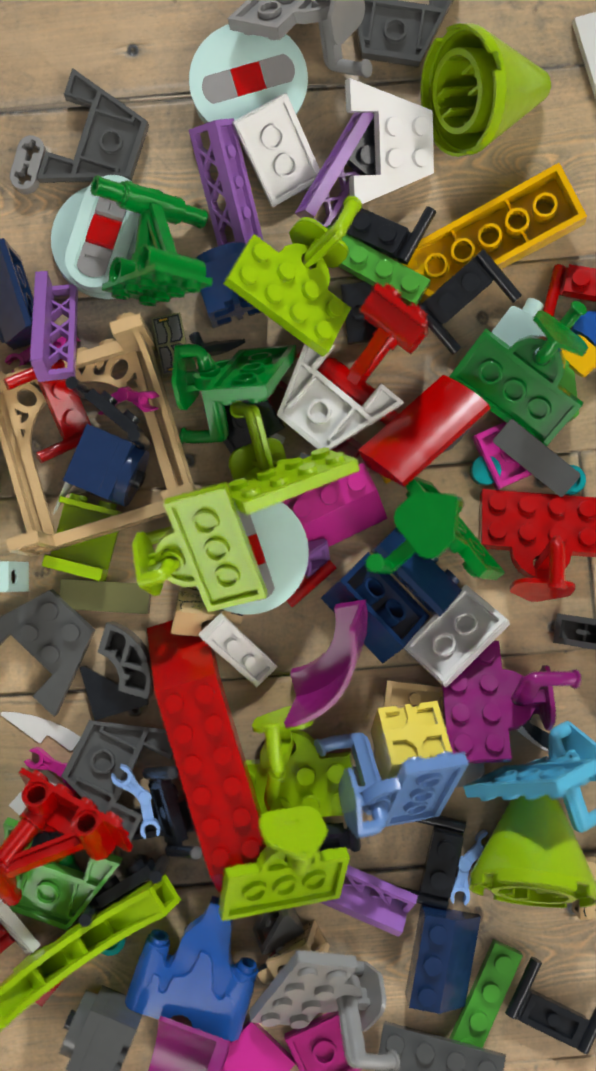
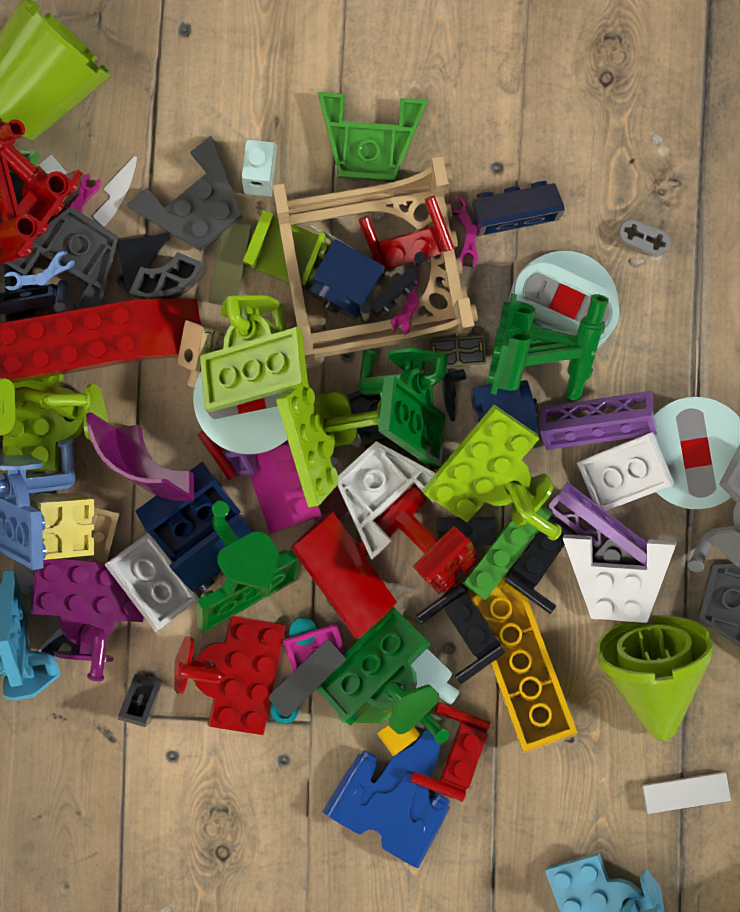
camera: 100 degrees right, 0 degrees up
(47, 332) = (479, 235): medium lavender fence -> none
(108, 141) = (656, 315): dark grey wing -> none
(238, 650) = (163, 379): white tile -> none

